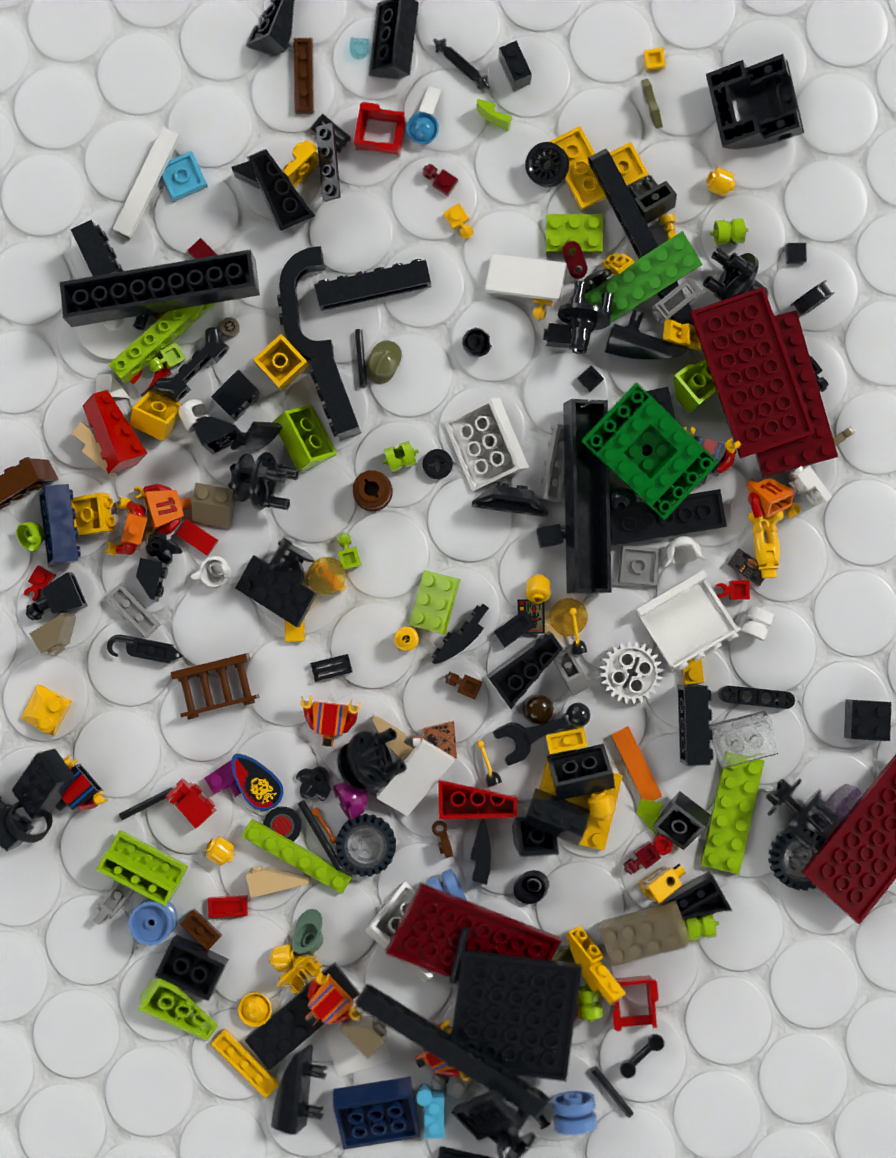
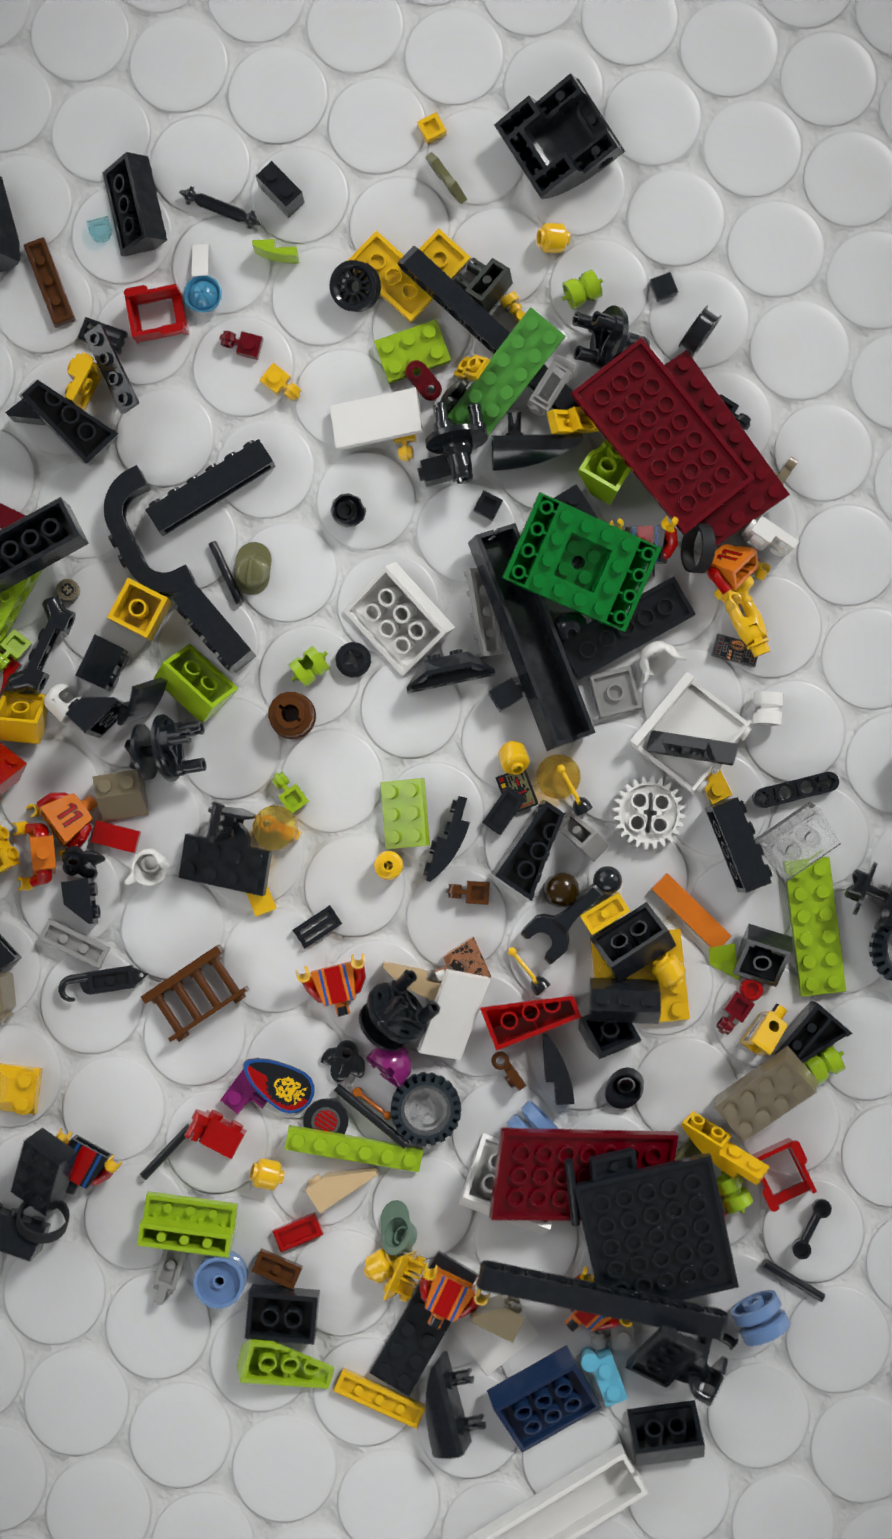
camera: 25 degrees left, 0 degrees up
(254, 1009) = (368, 1335): yellow hat -> none
(499, 944) = (612, 1163): none -> black plate
(685, 632) = (692, 747): none -> black bracket
(736, 590) = (731, 680): red plate -> none
(755, 478) = (707, 552): none -> black tyre

